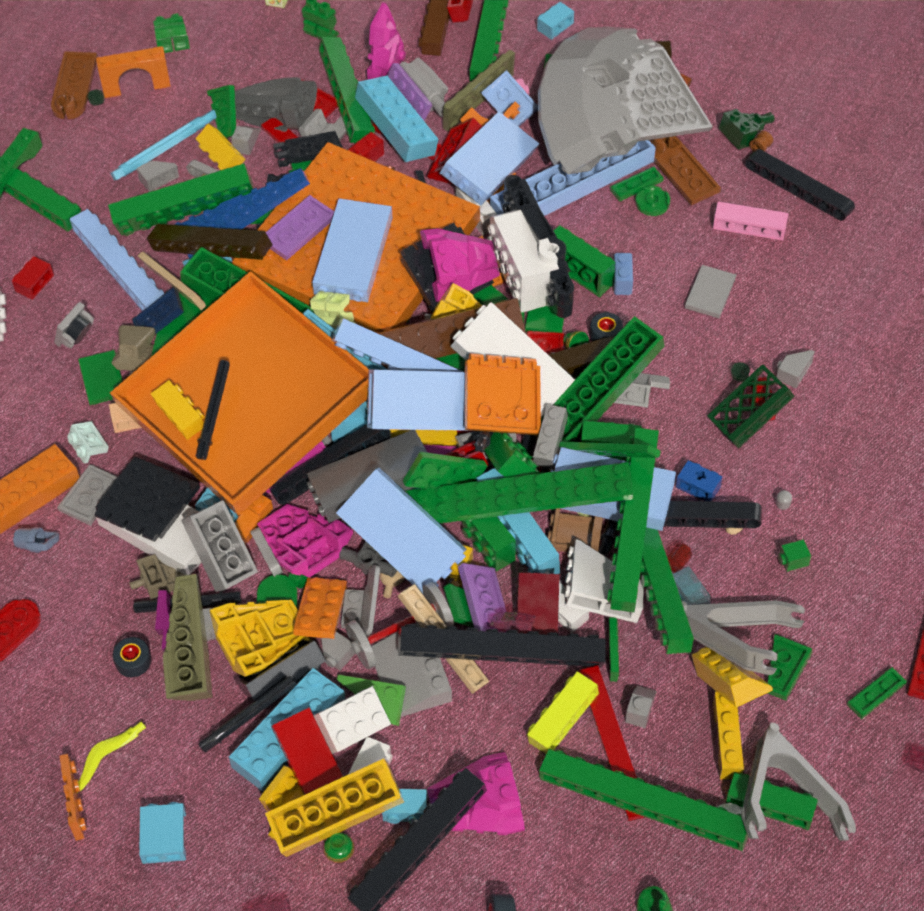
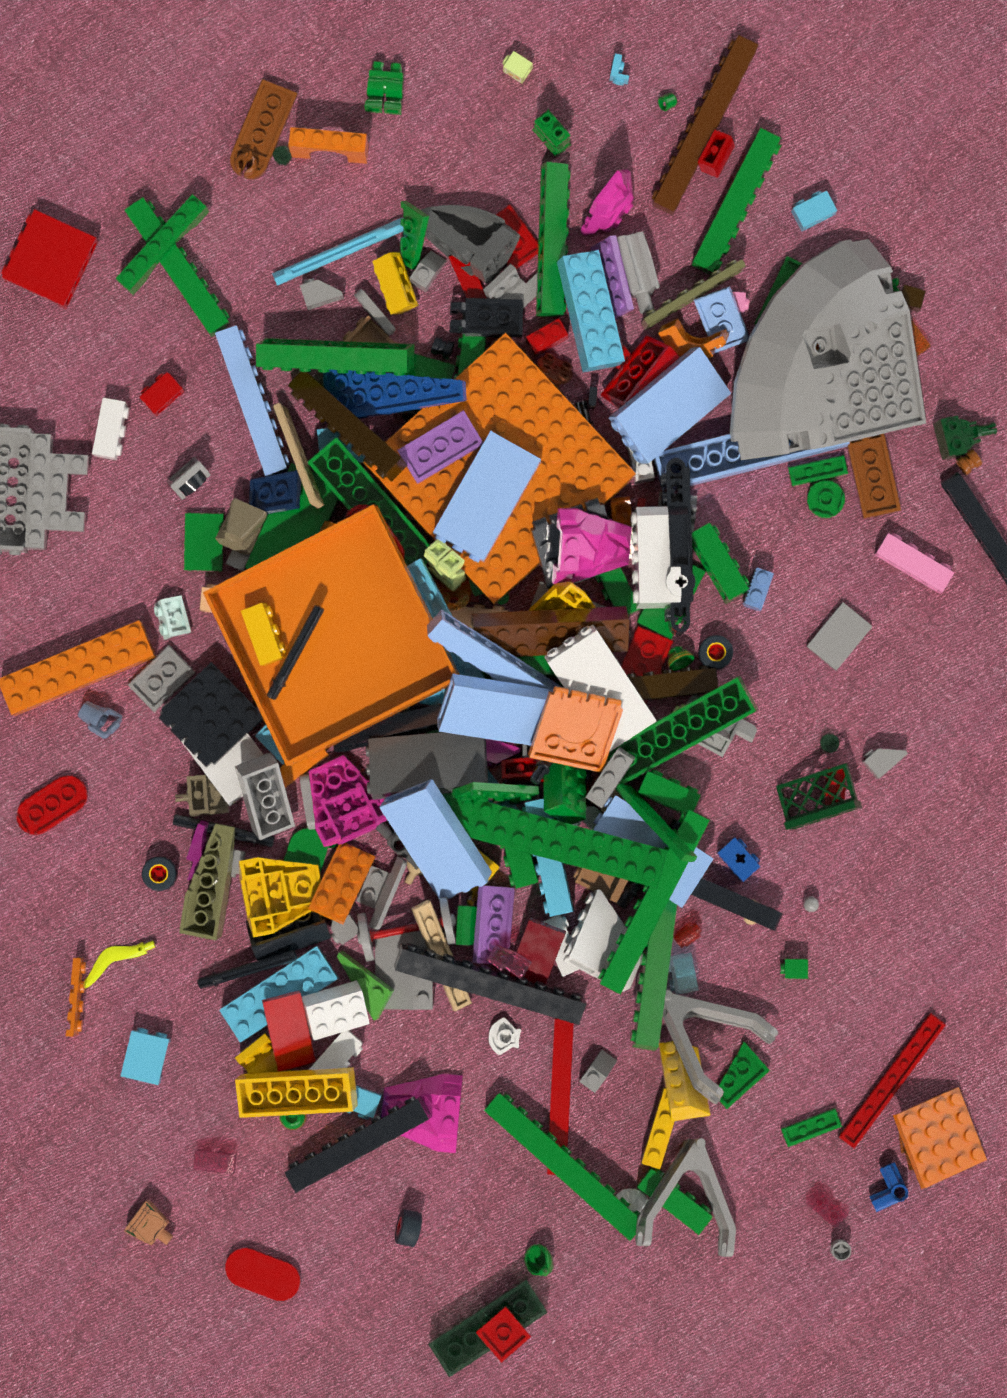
camera: 20 degrees right, 30 degrees up
(532, 702) = (503, 1036): none -> white animal
(562, 713) = (524, 1060): neon yellow brick -> none
(613, 649) = (592, 1011): green tile -> none

